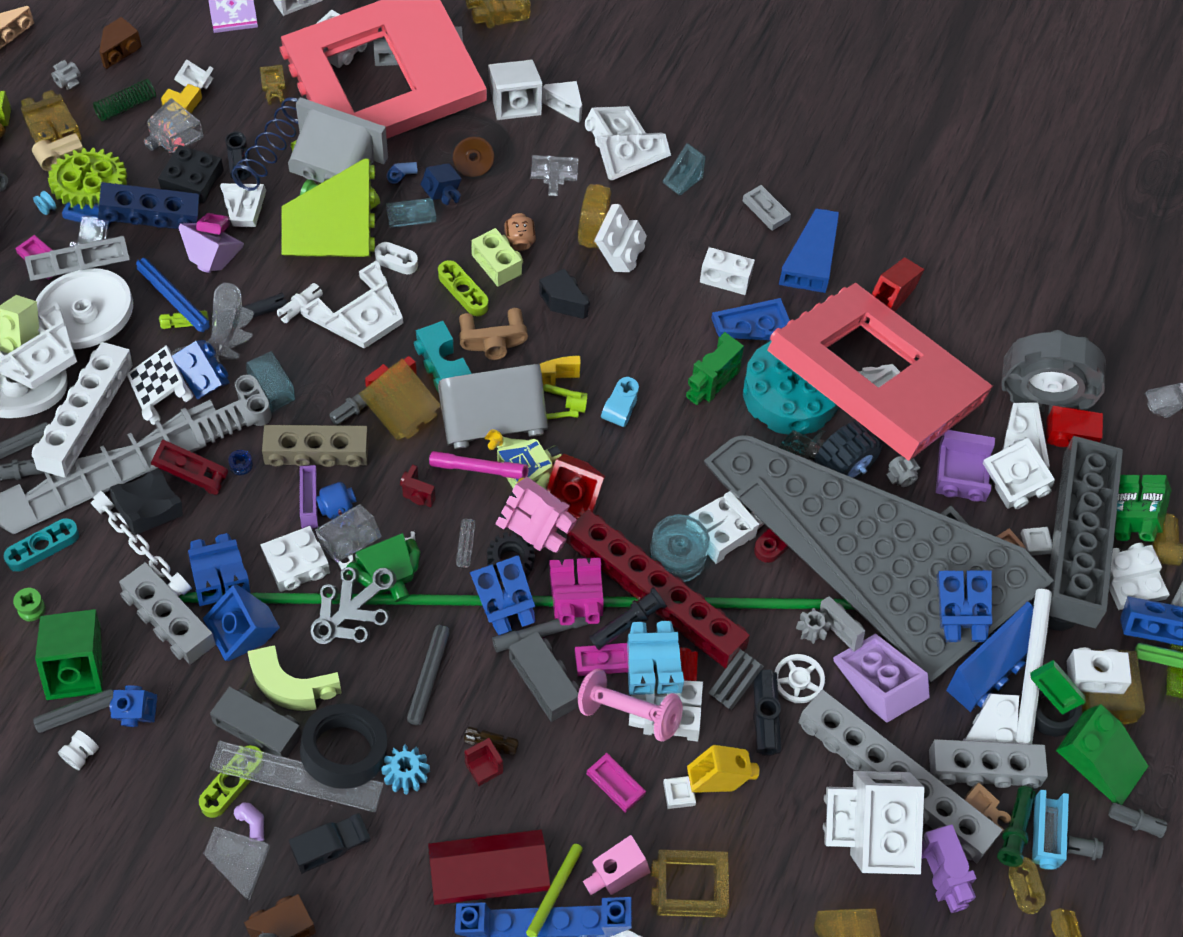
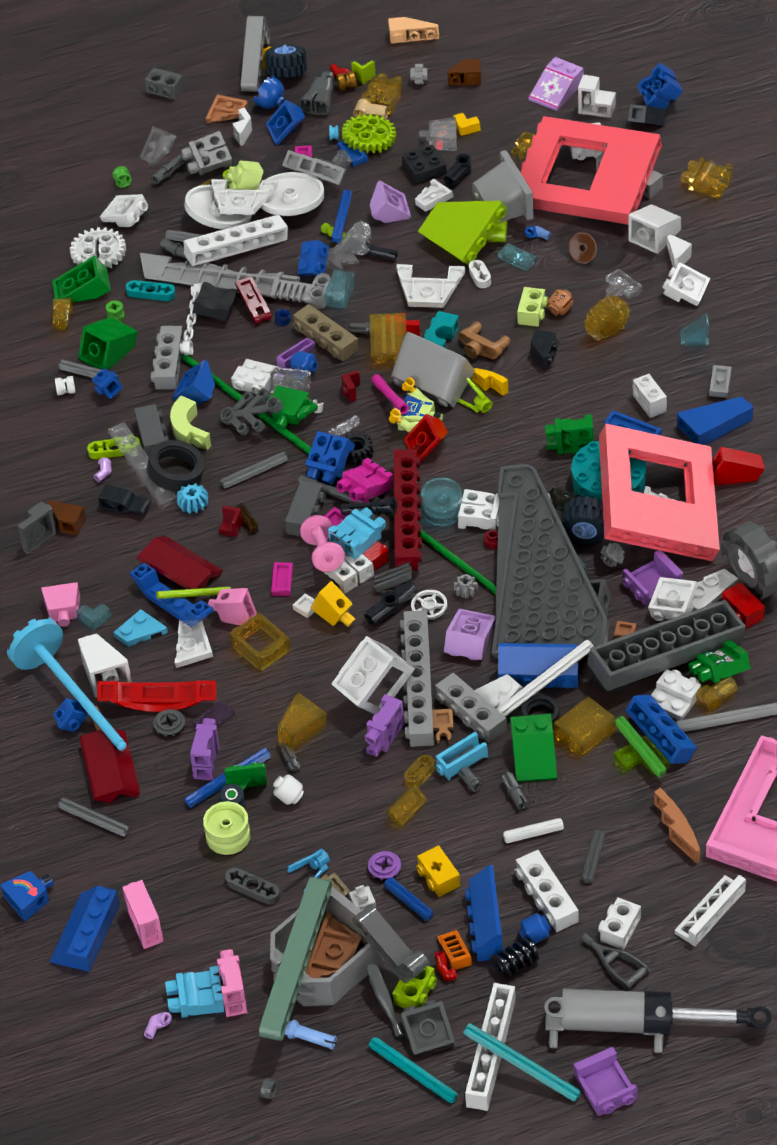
camera: 55 degrees right, 10 degrees down
(108, 106) = (440, 103): dark green piece -> none
(147, 206) = (378, 163): dark blue brick -> none
(156, 380) = (286, 252): white flag -> none
(194, 75) = (485, 115): white bracket -> none
(213, 223) = (401, 193): dark pink tile -> none
(214, 561) = (213, 350): blue hips -> none
(234, 171) = (470, 177): dark blue piece -> none
(237, 858) = (78, 478): clear wing -> none
(299, 301) = (391, 262): white pin -> none
(442, 183) = (547, 249): dark blue brick -> none
(462, 278) = (493, 328): lime beam -> none
(536, 516) = (383, 430): bright pink hips -> none
(620, 239) = (606, 338): white plate -> none
(621, 402) = (503, 420): medium azure piece -> none
(631, 152) = (675, 301): white wing -> none
(842, 623) = (481, 590): light grey plate -> none
(967, 612) = (543, 620): blue hips -> none
(1015, 835) = (438, 743): dark green pin -> none
(1057, 687) = (542, 693): green tile -> none
(1115, 669) = (576, 705): white brick -> none

